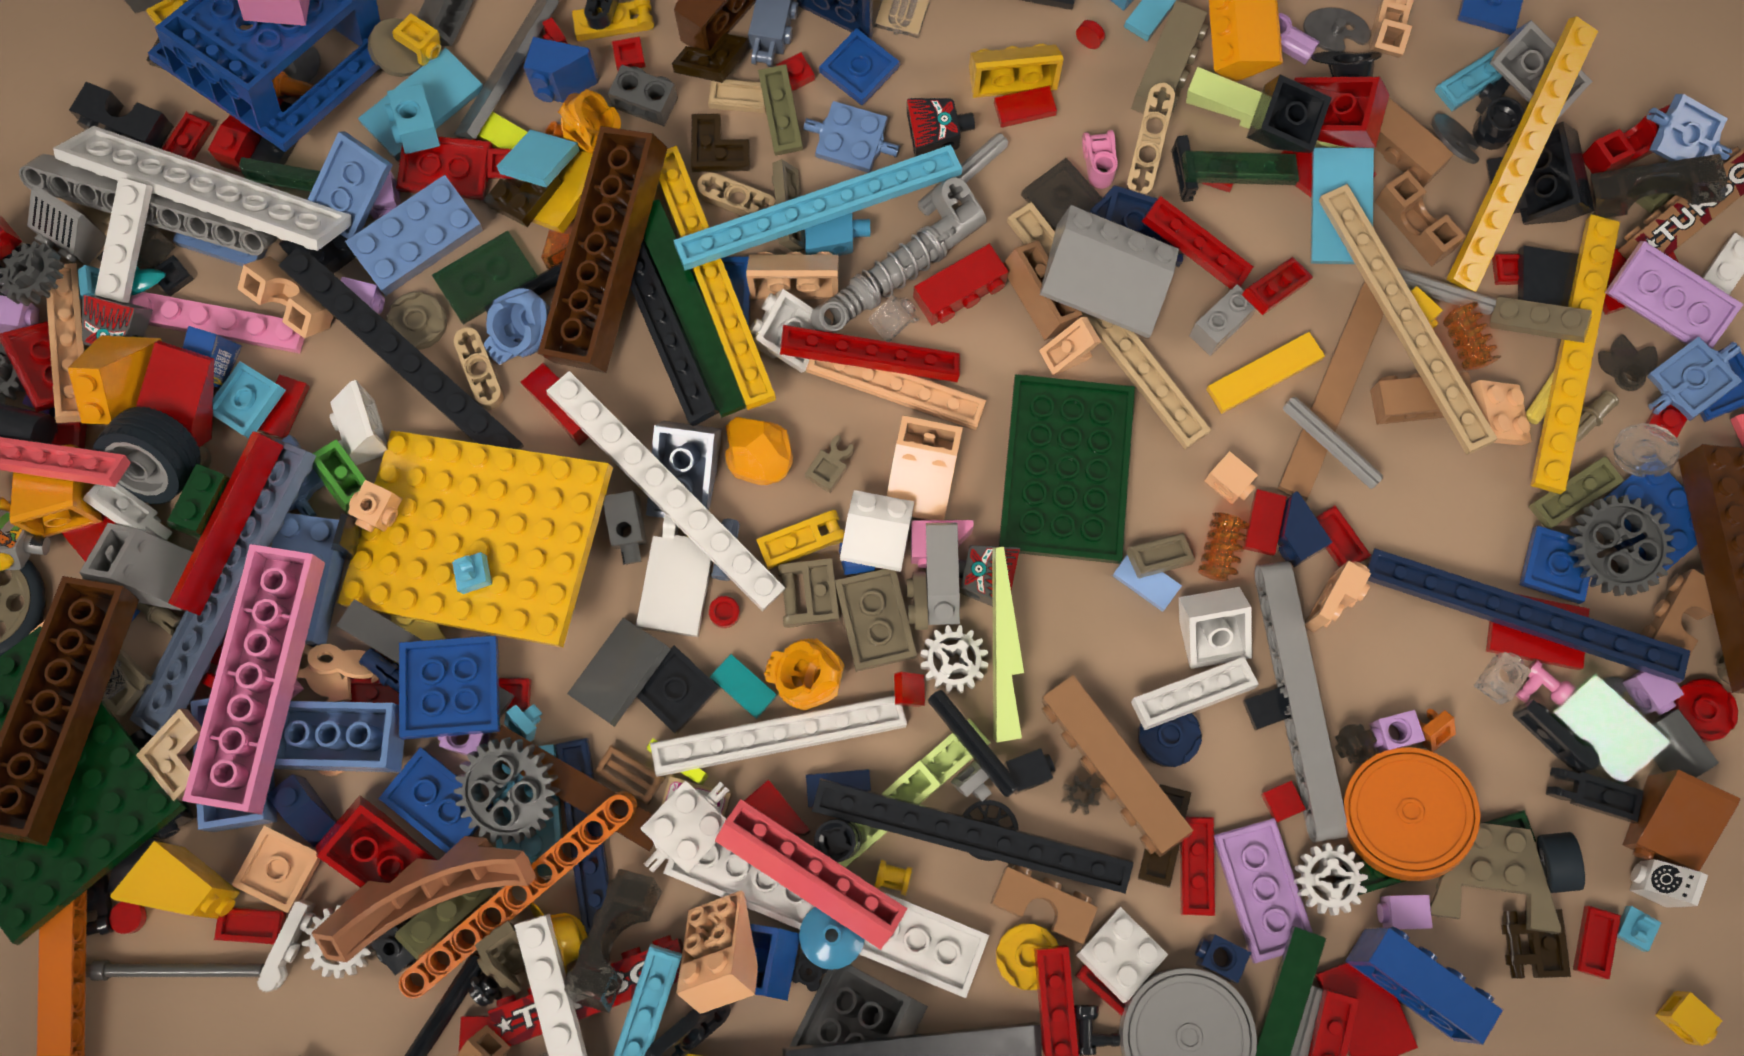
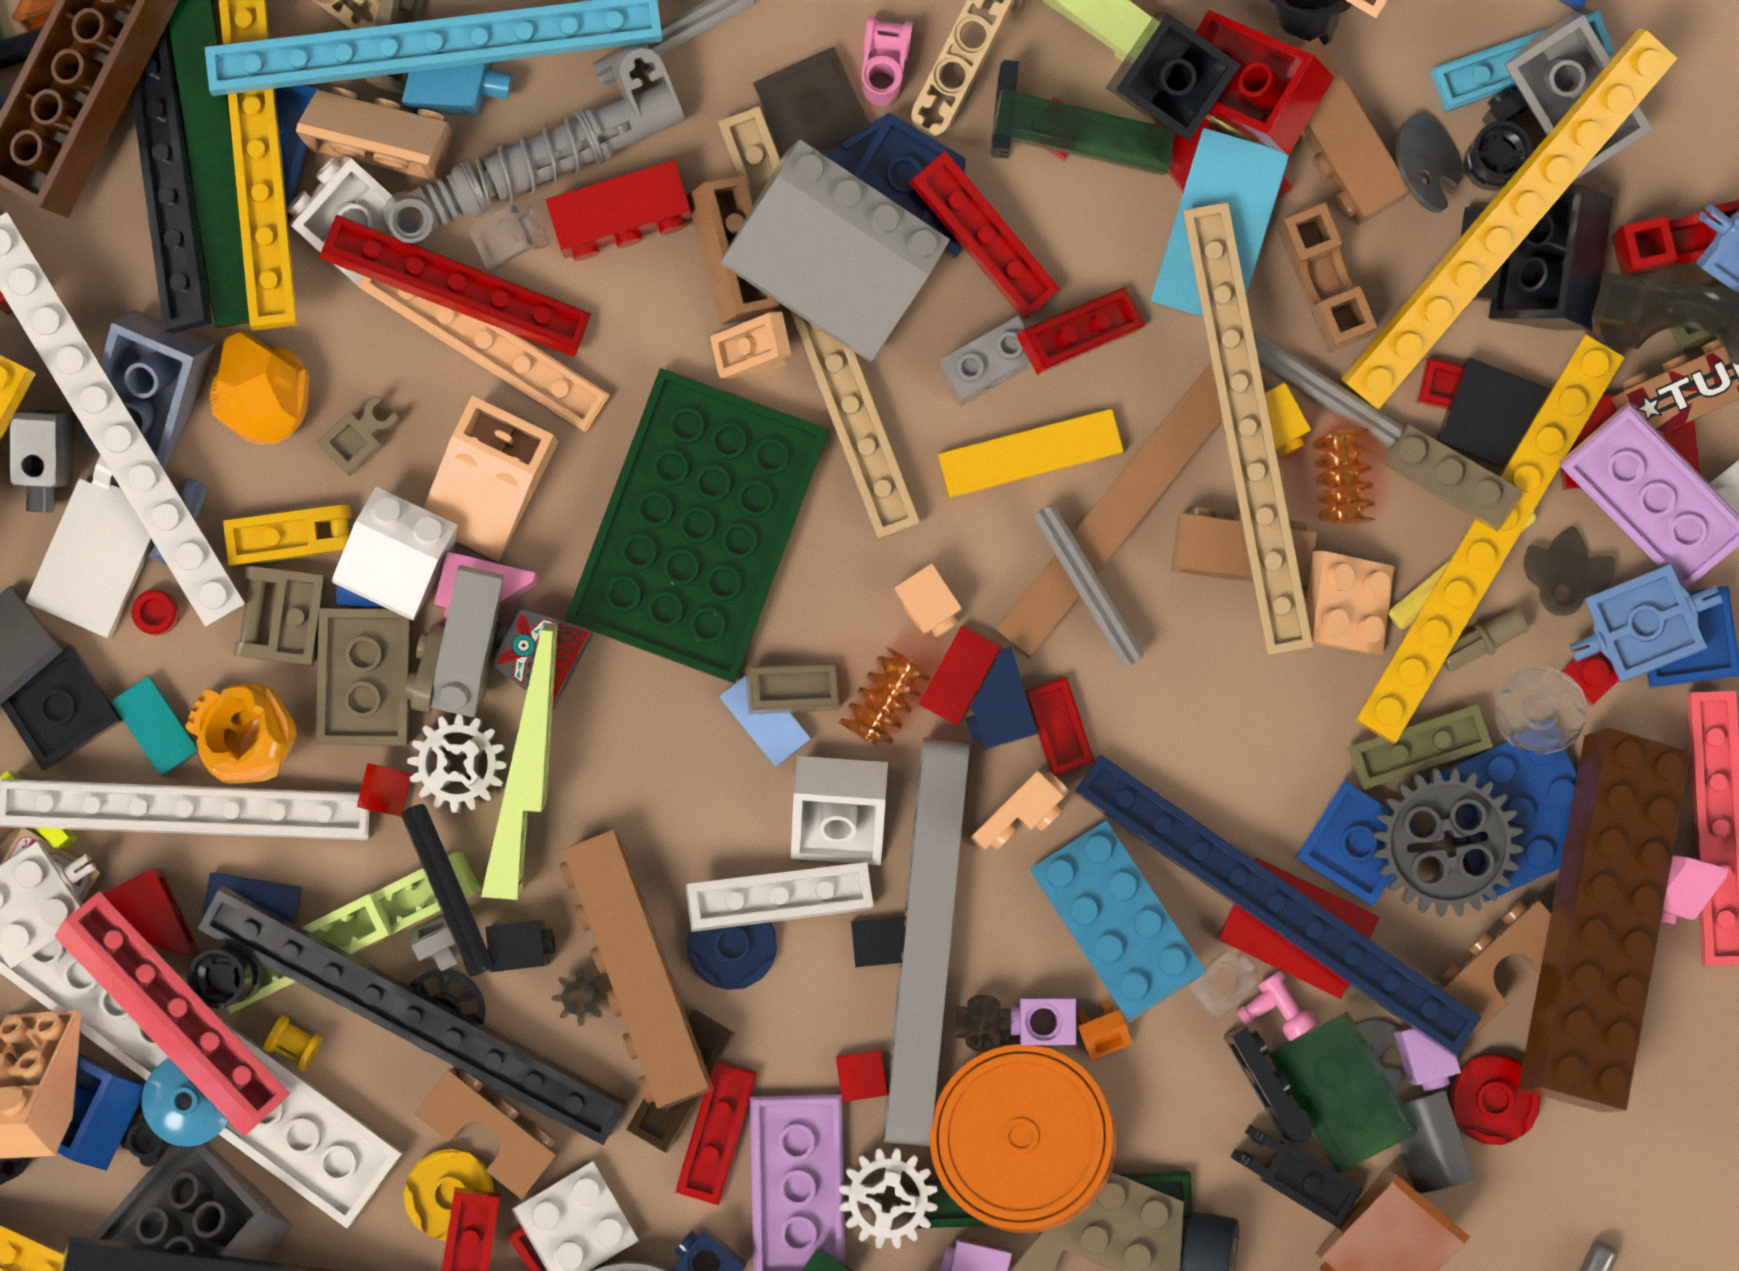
camera: 15 degrees right, 10 degrees up
(1423, 653) = (1117, 921): none -> dark azure plate

